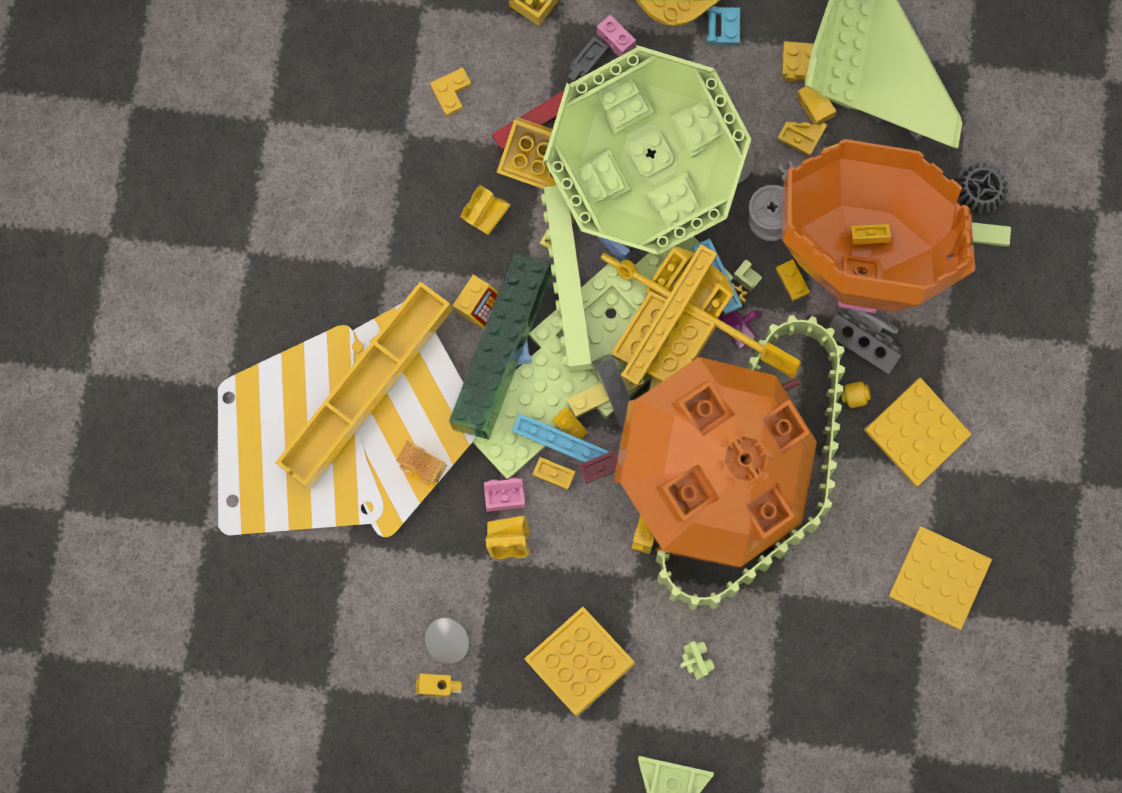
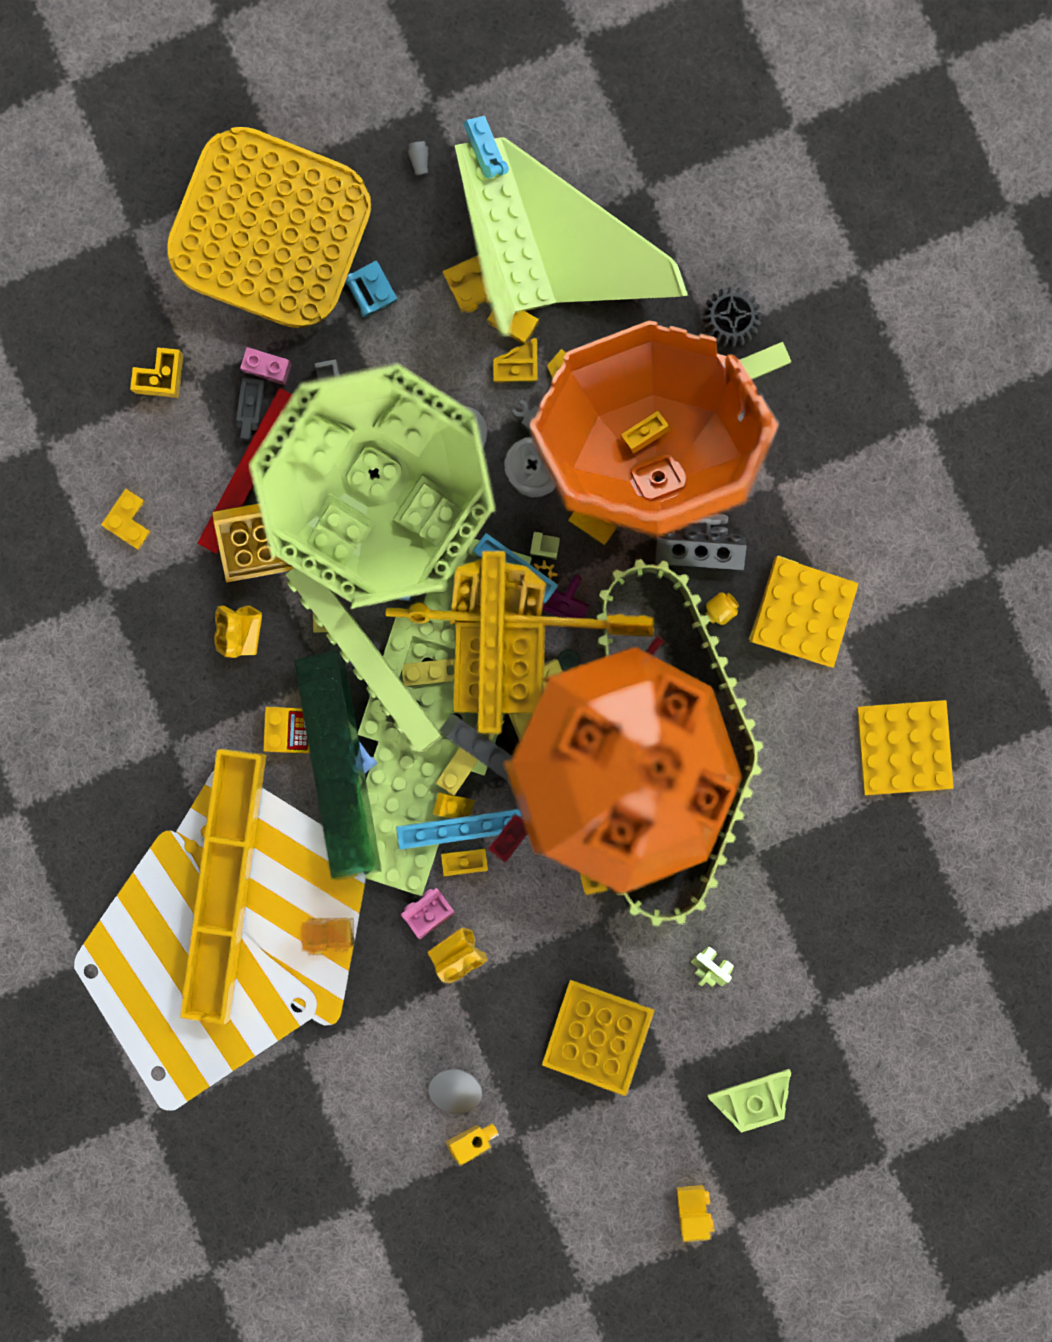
camera: 30 degrees left, 10 degrees up
(607, 318) = (427, 672): none -> light yellow plate

